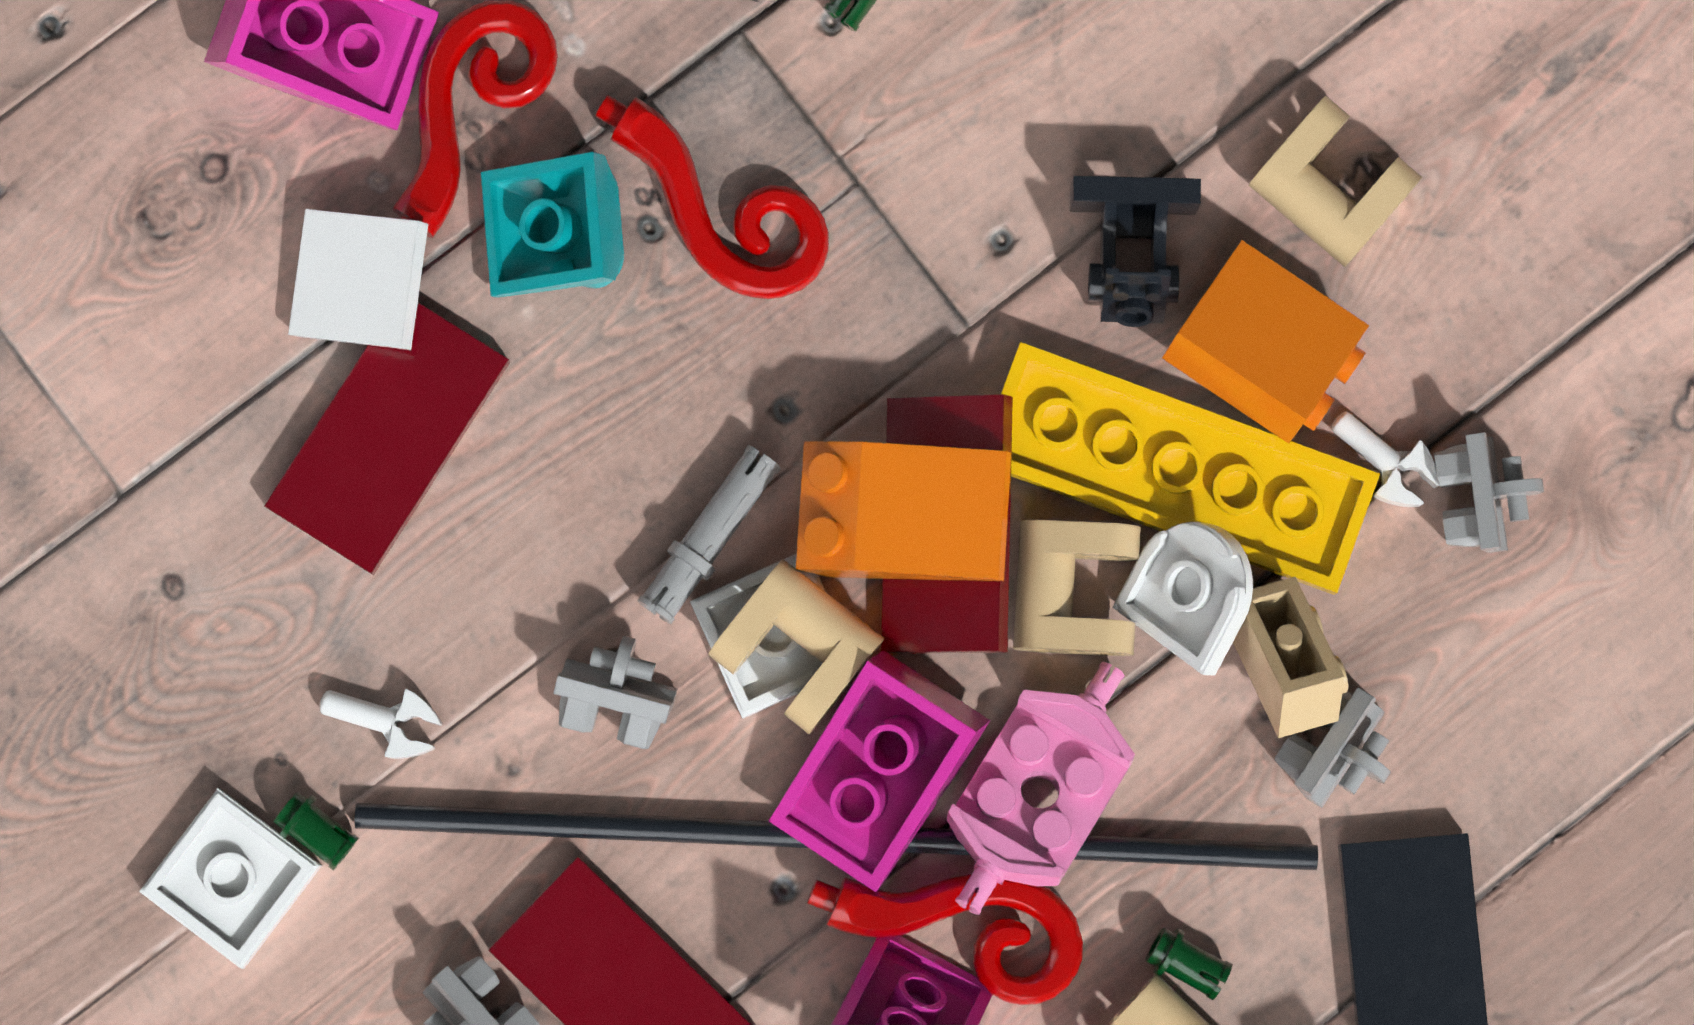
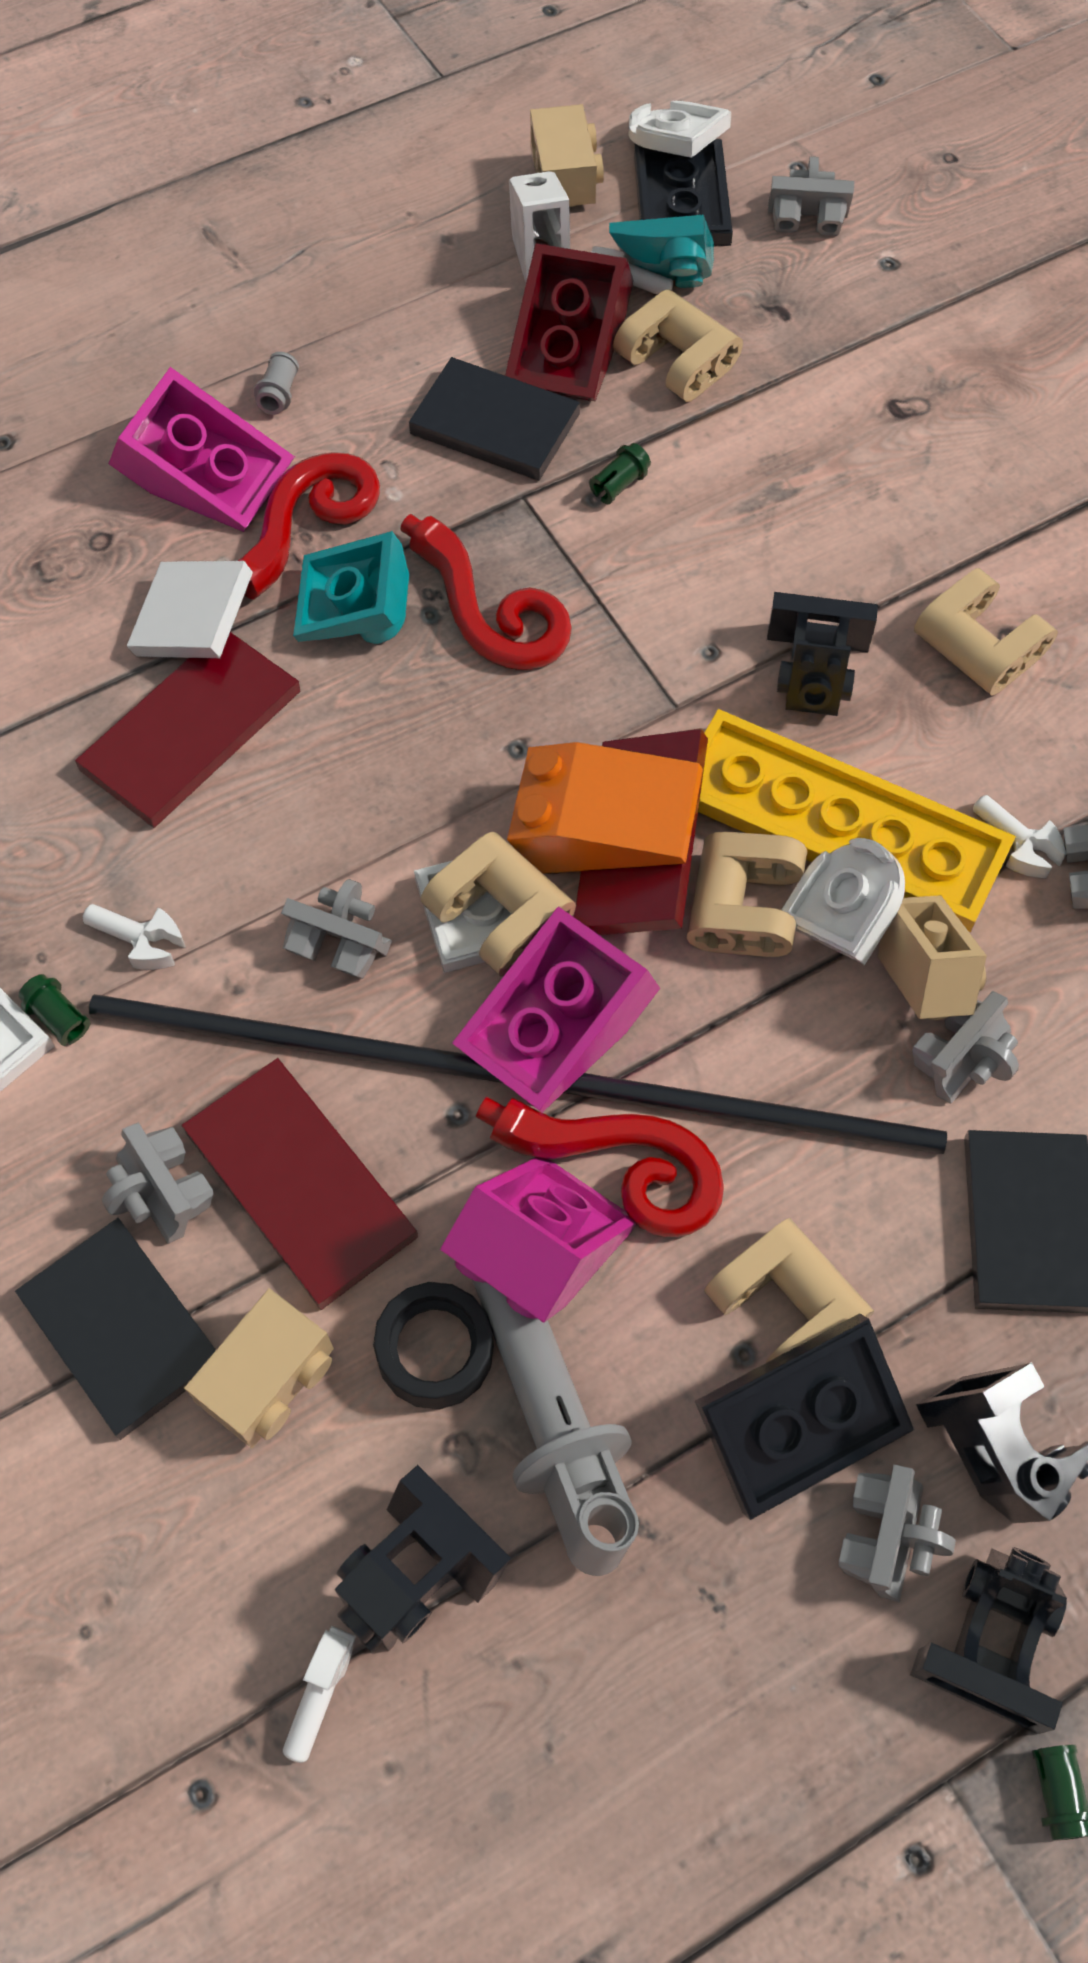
camera: 10 degrees right, 20 degrees down
(709, 534) = (423, 836): light grey pin -> none
(1051, 739) = (711, 1011): bright pink plate -> none
(1187, 962) = (819, 1214): dark green pin -> none
(1268, 343) = (924, 727): orange brick -> none

